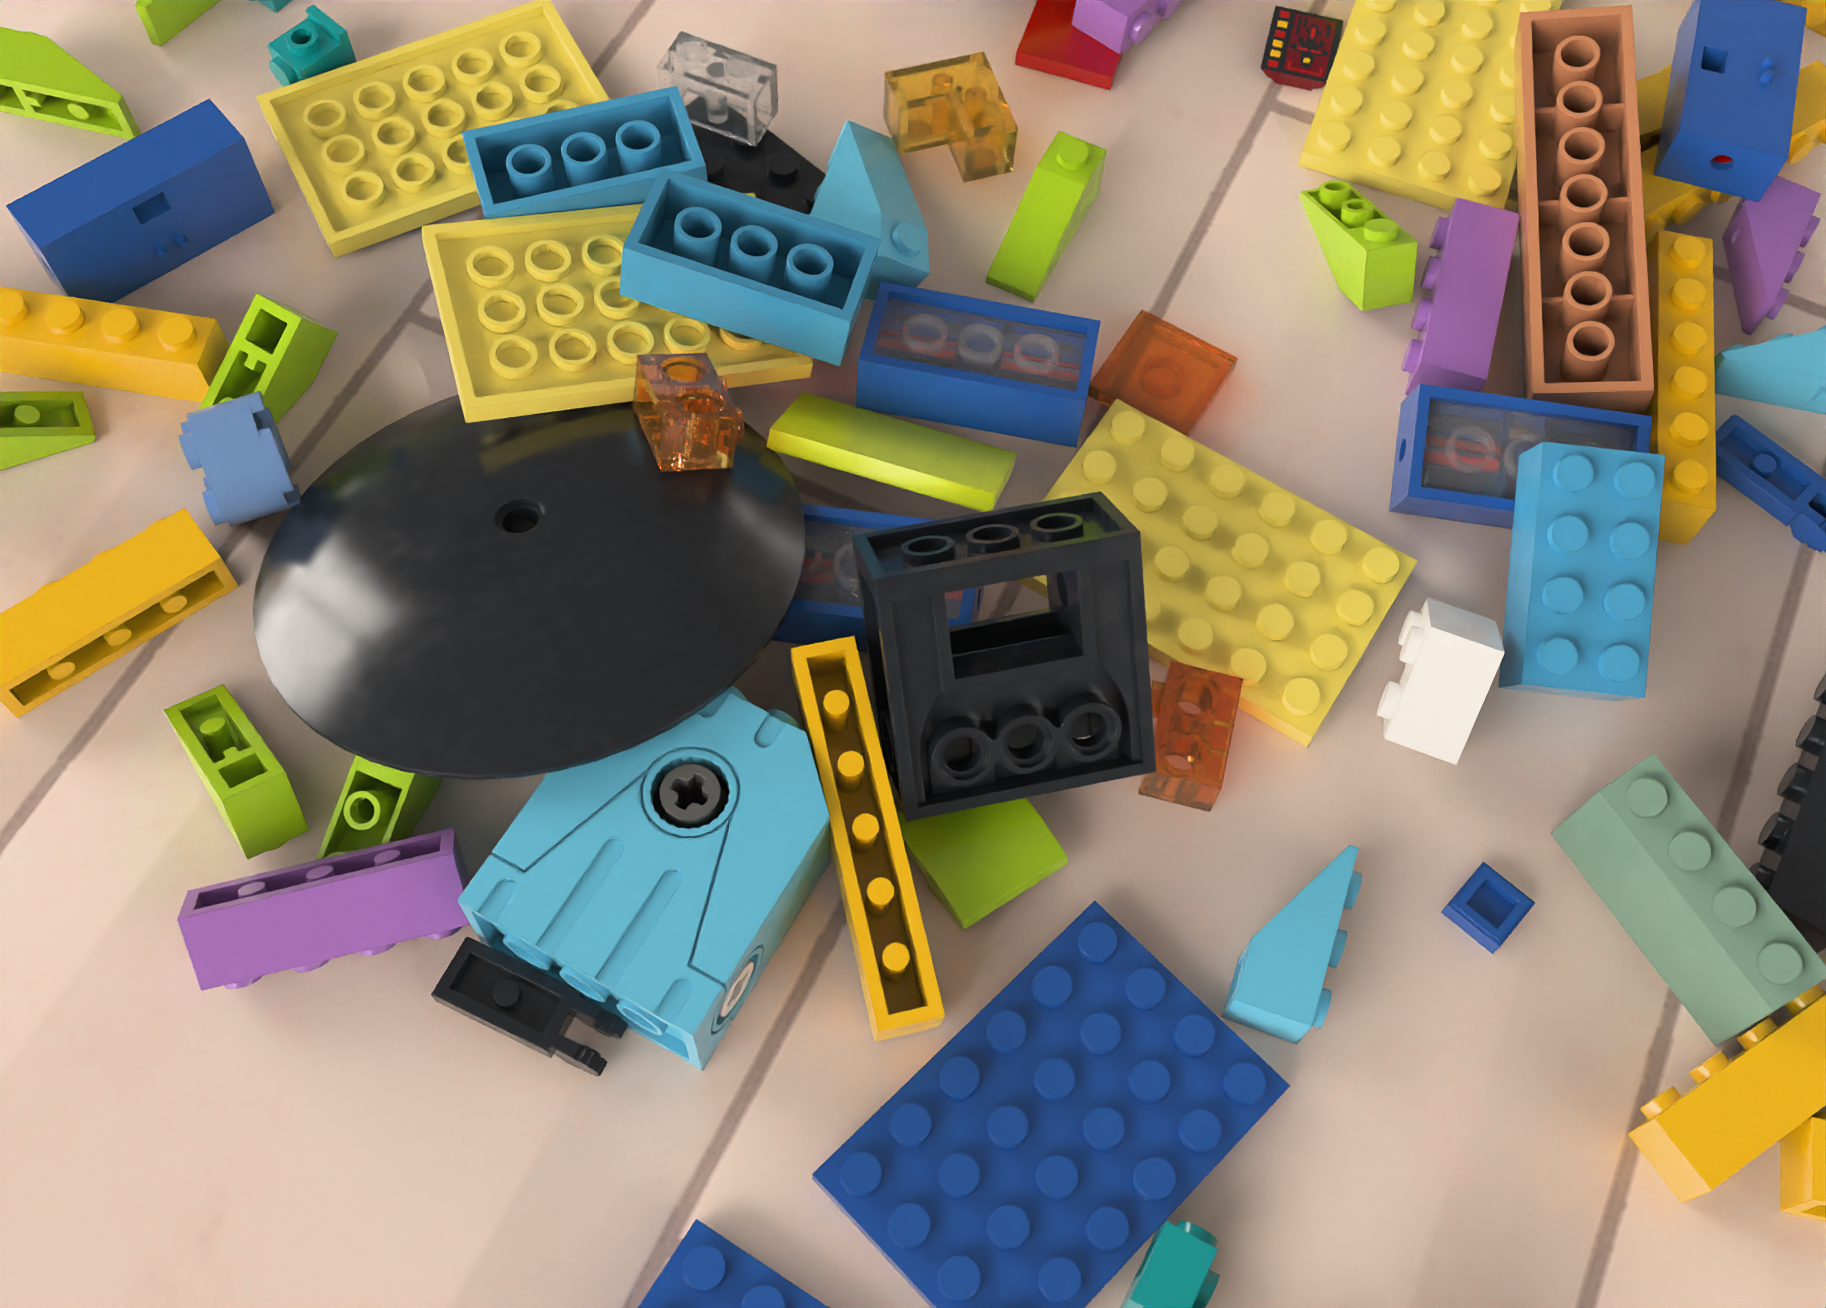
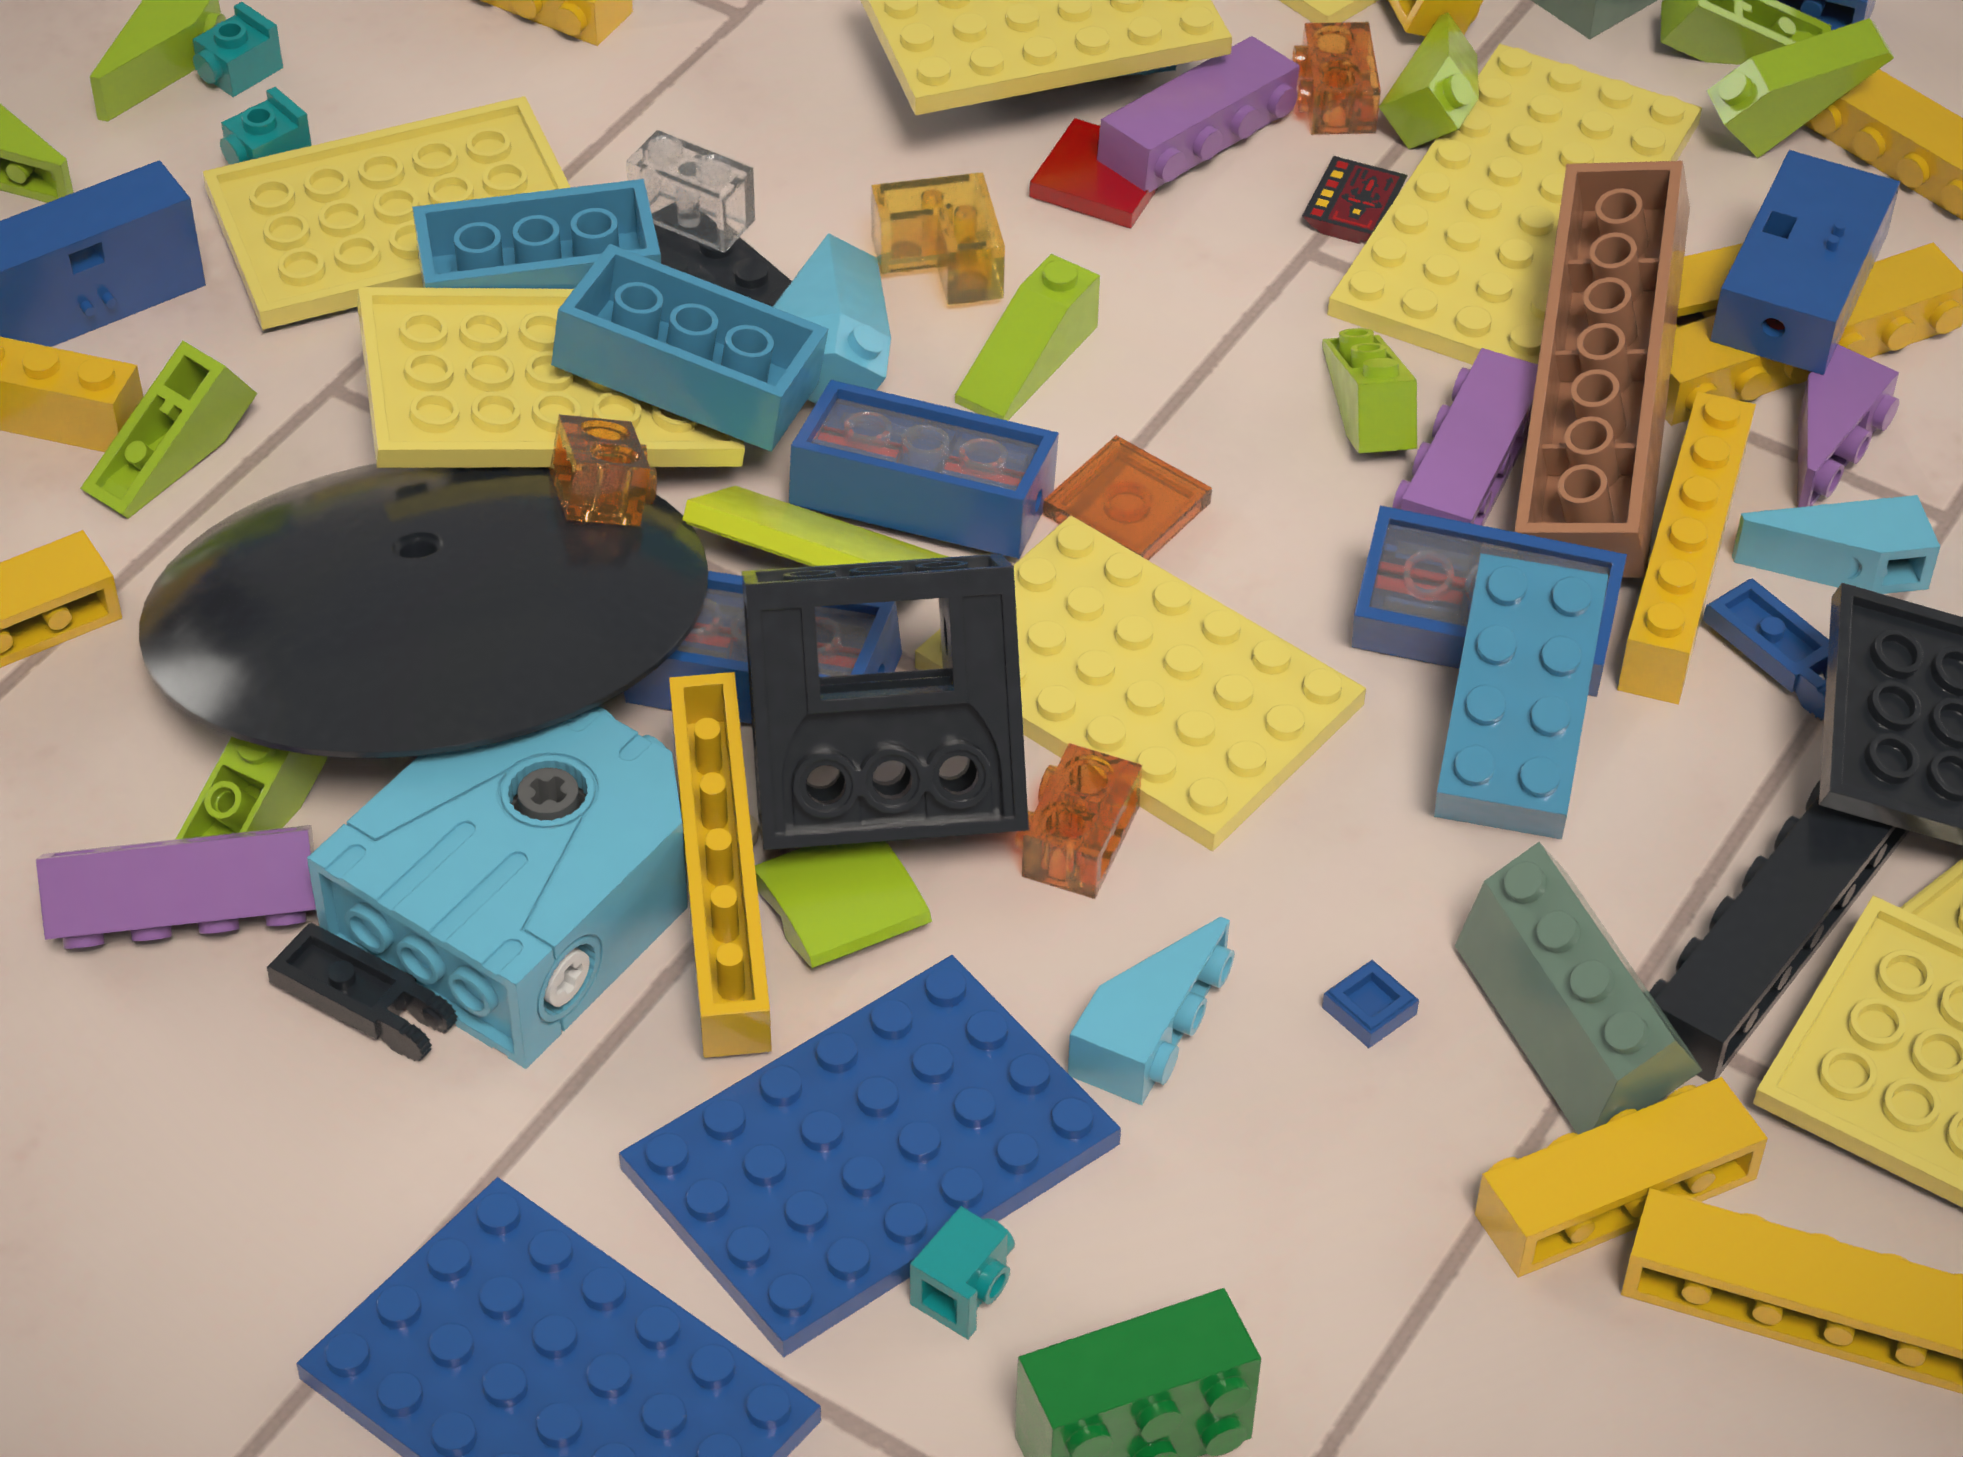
camera: 10 degrees right, 15 degrees down
(238, 771) = (105, 768): lime slope -> none
(241, 460) = (146, 493): medium blue brick -> none
(1445, 679) = (1353, 785): white brick -> none

